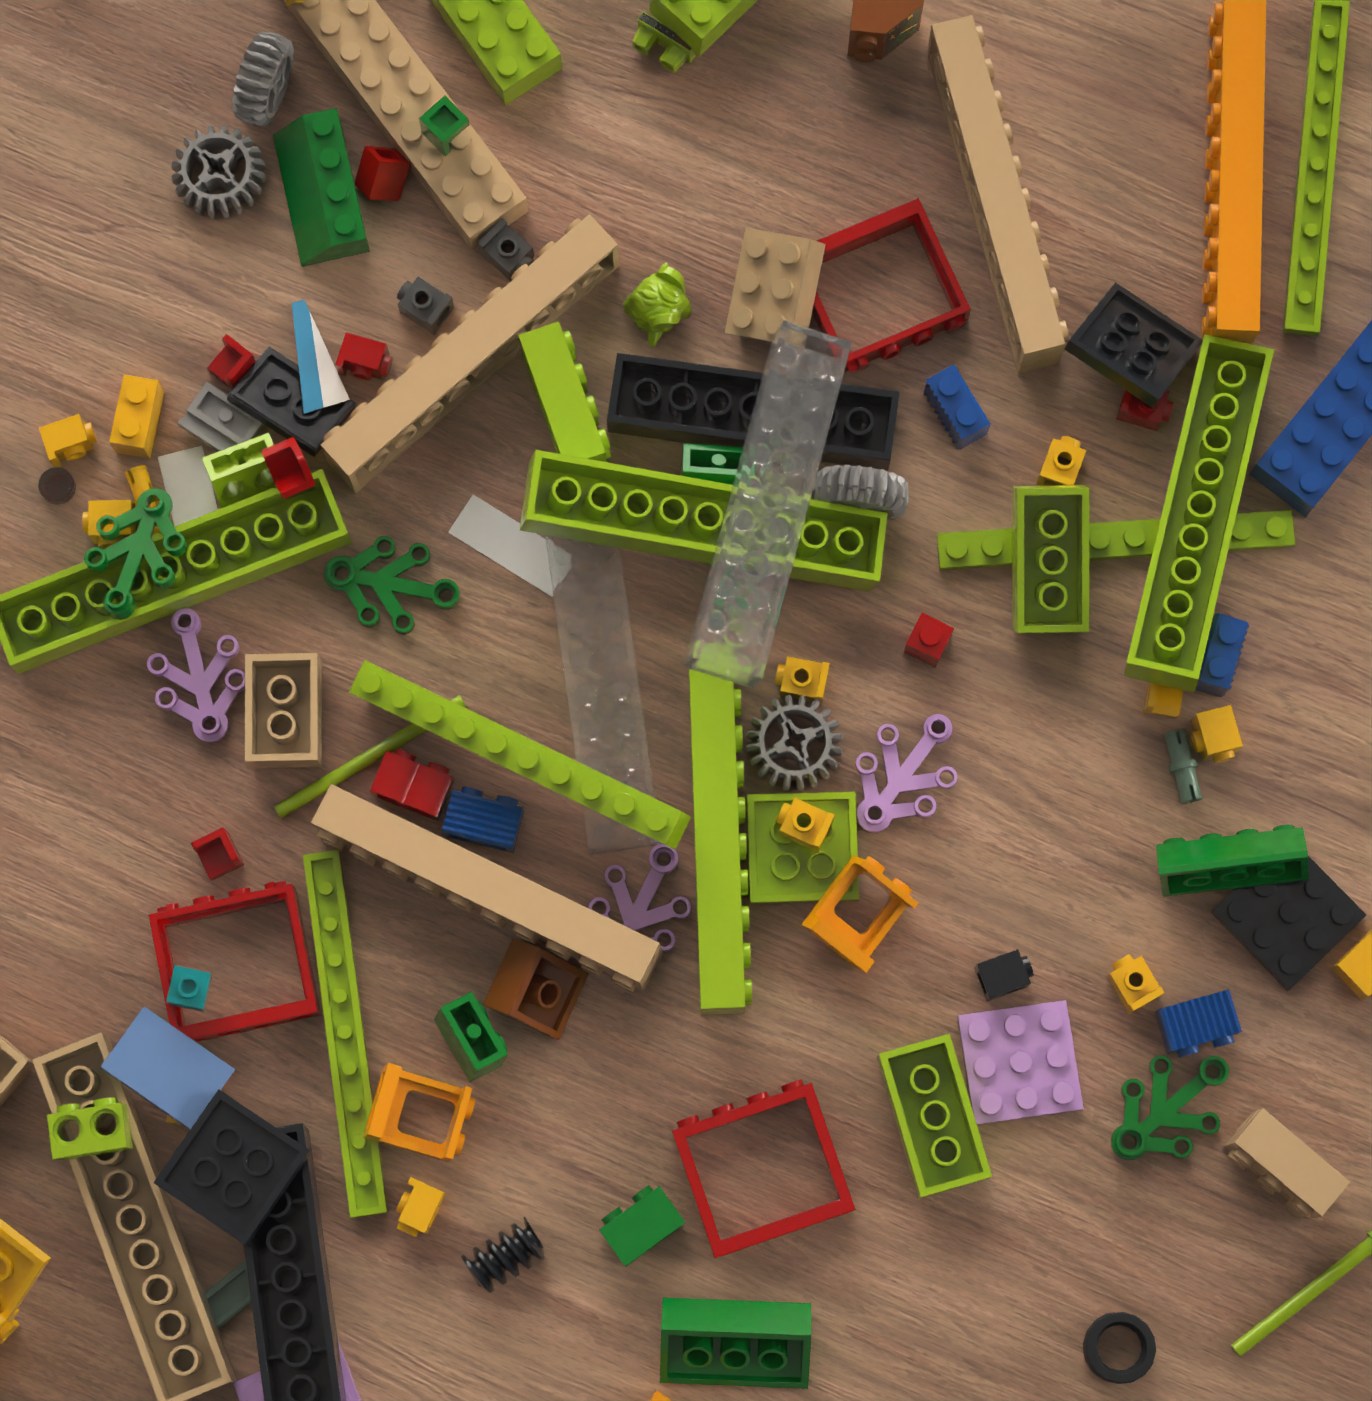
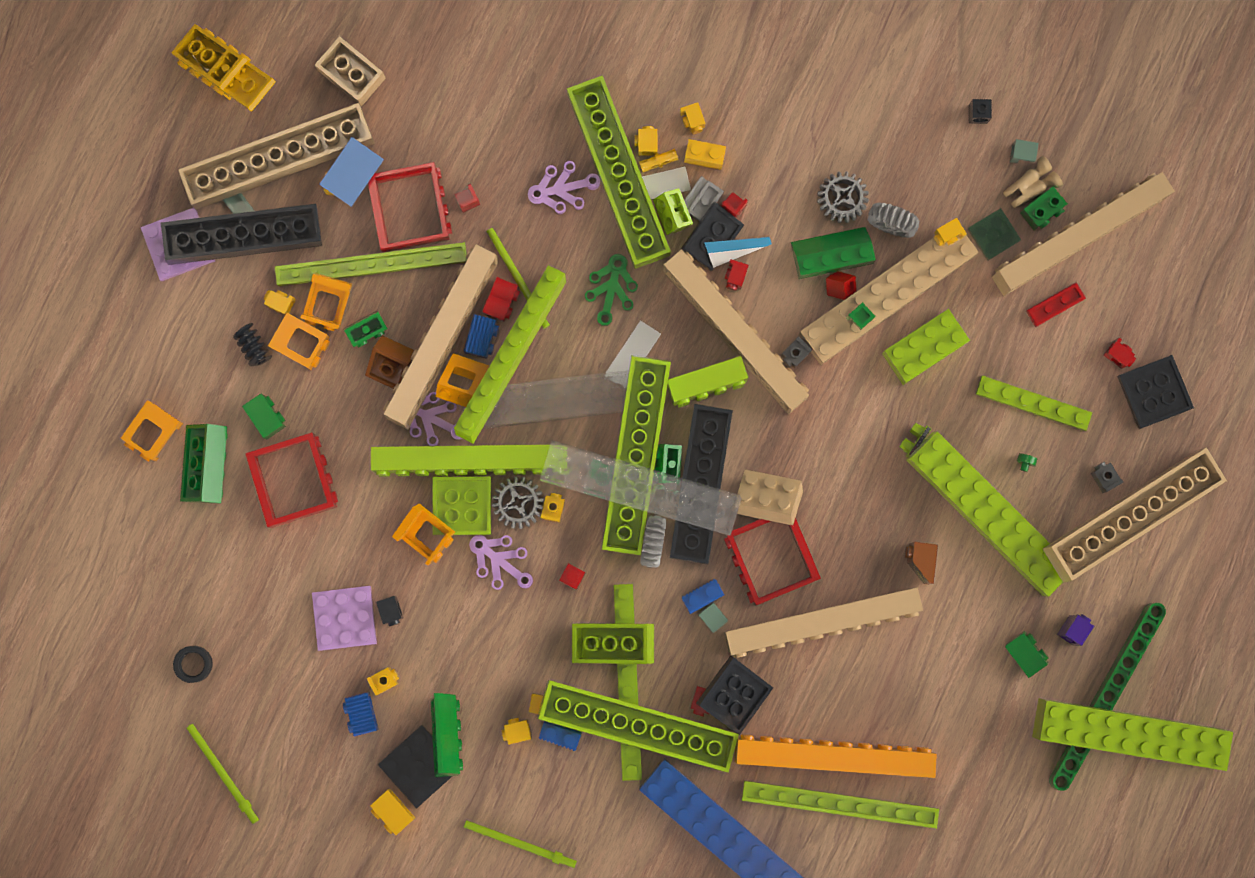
camera: 90 degrees right, 5 degrees up
(57, 485) = (669, 113): clear smoke tile -> none
(90, 1139) = (315, 132): lime brick -> none
(137, 547) = (629, 154): green plant -> none
(189, 988) = (392, 182): teal brick -> none
(232, 1167) = (297, 204): black plate -> none
(283, 710) = (541, 231): tan brick -> none
(288, 467) = (669, 233): red panel -> none
(428, 315) = (766, 314): dark grey brick -> none
(482, 1191) = (284, 334): none -> light orange window
(546, 838) = (463, 367): none -> light orange window
(659, 303) = (764, 435): lime hair -> none
(810, 836) = (472, 513): yellow brick -> none
(934, 1116) = (315, 570): lime brick -> none
(995, 388) = (713, 617): none -> sand green panel
(1052, 471) = (662, 650): yellow brick -> none
(1164, 1112) = (315, 694): green plant -> none
(1183, 766) = (500, 712): sand green pin -> none
(1285, 1165) = (281, 755): tan brick -> none

